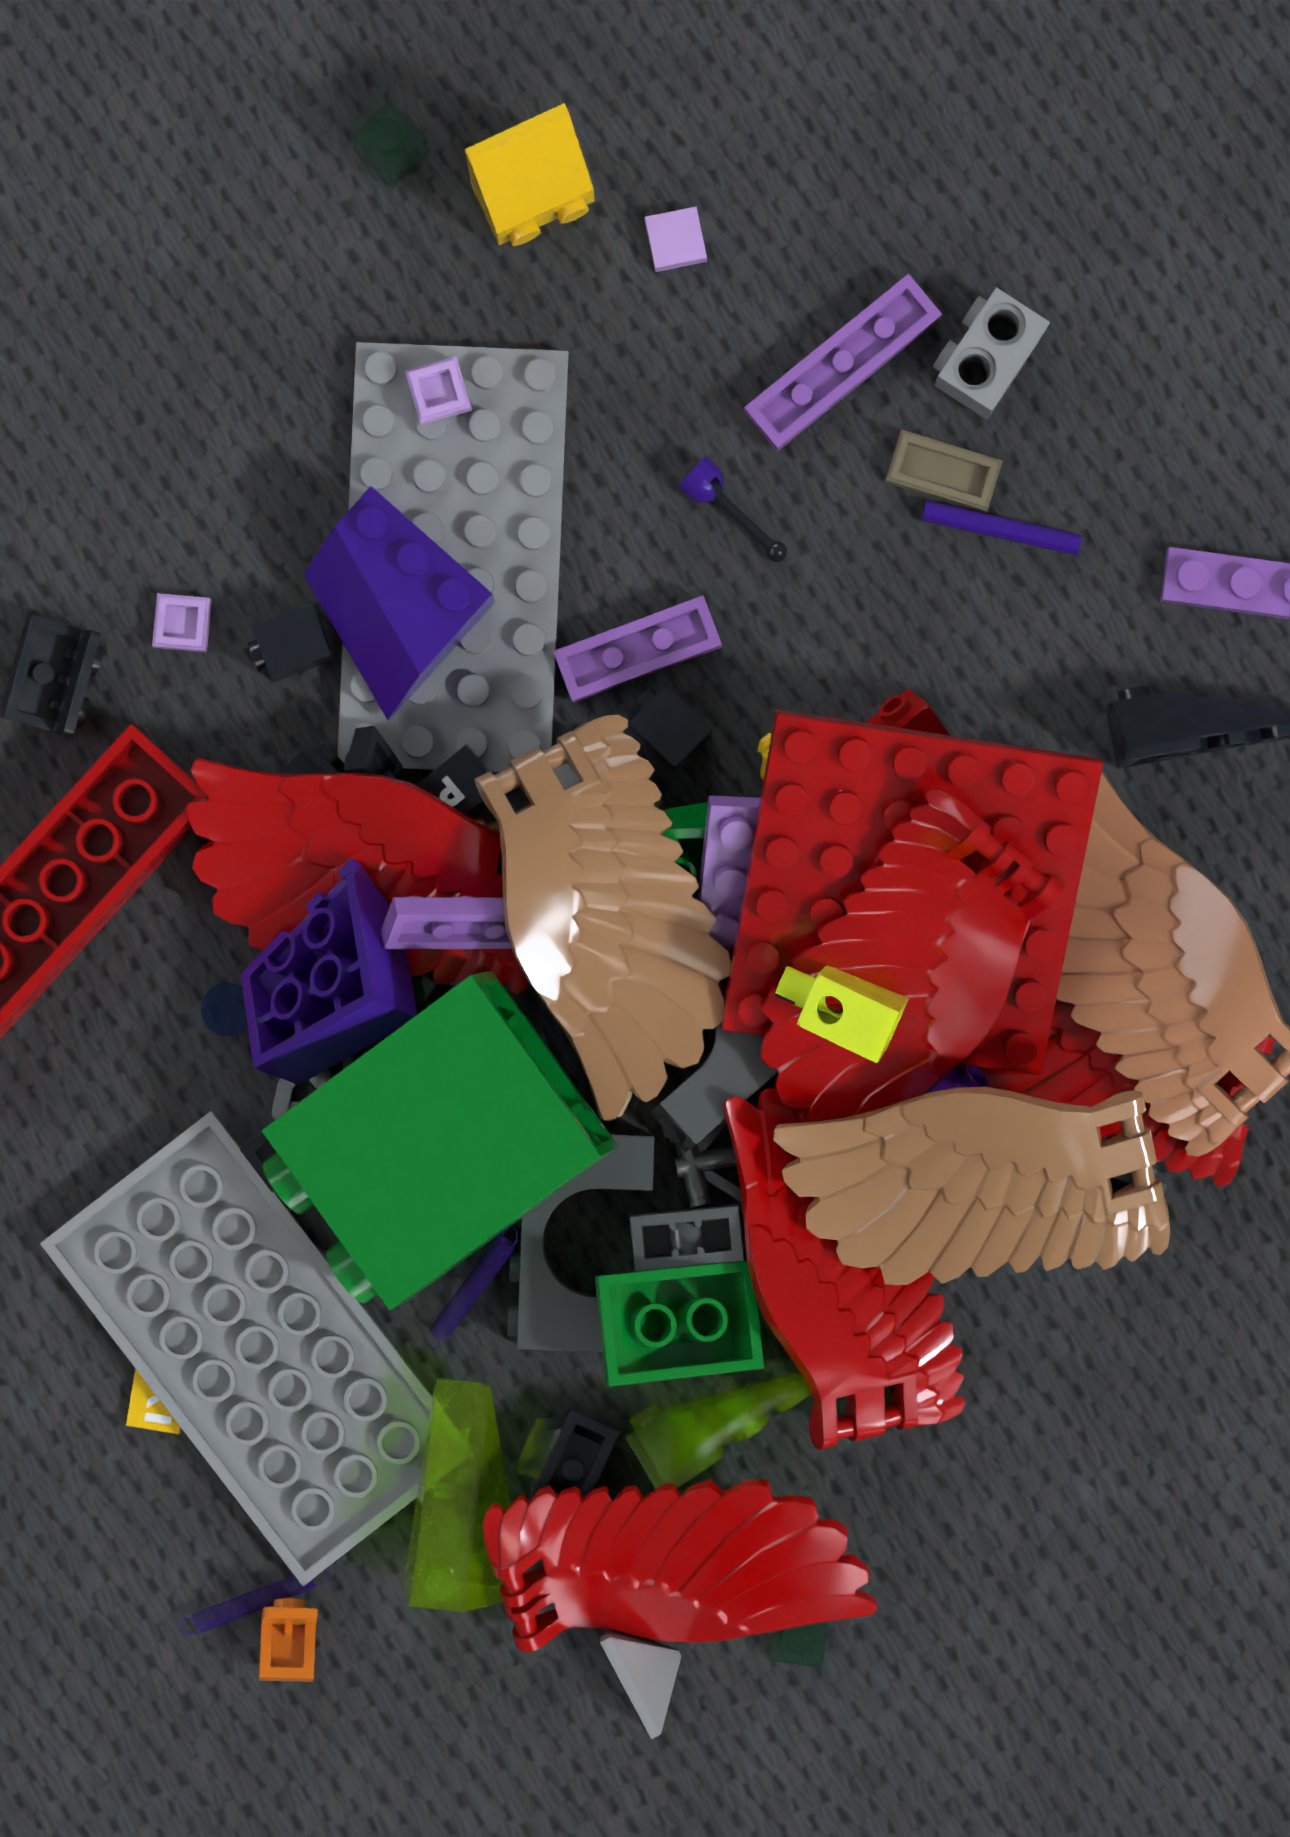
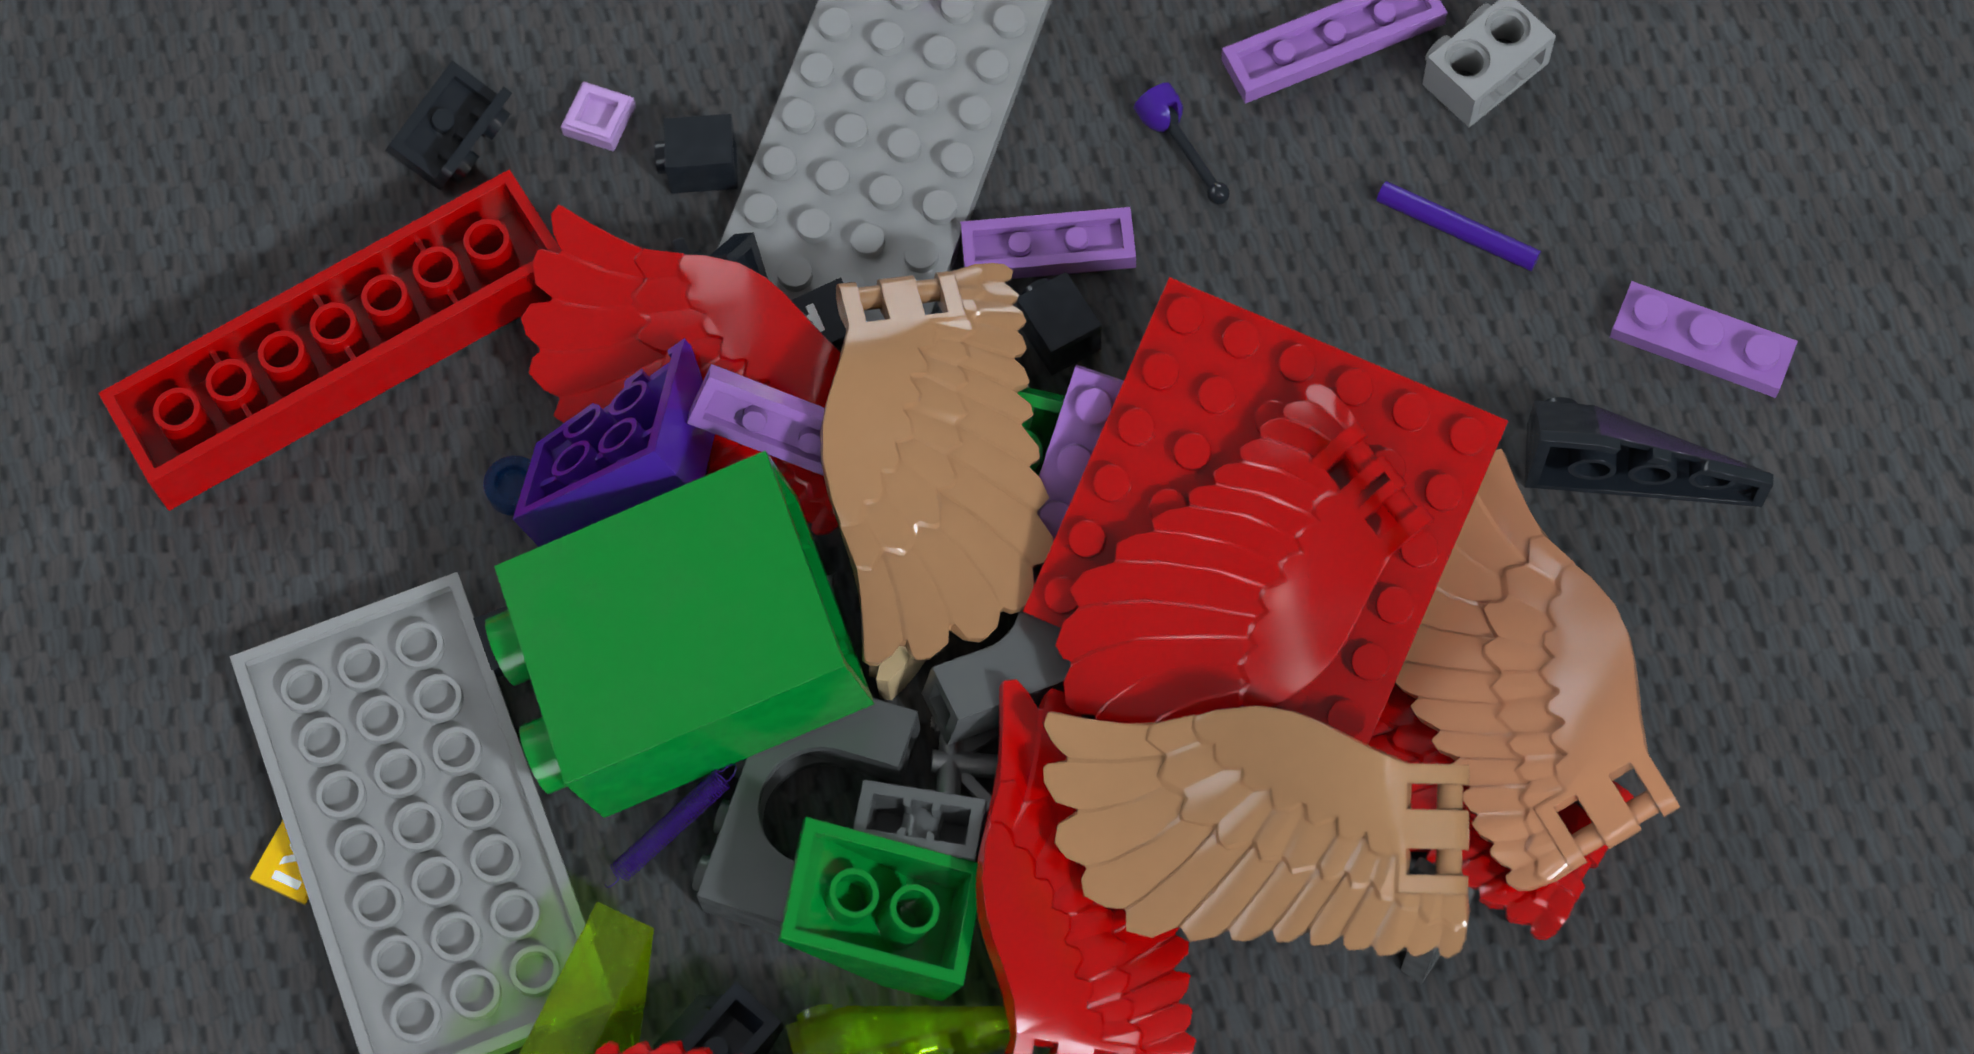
camera: 20 degrees right, 20 degrees down
(393, 598) = (816, 124): dark purple wedge -> none
(867, 1015) = (1161, 590): neon yellow torso -> none
(943, 471) = (1411, 159): dark tan tile -> none

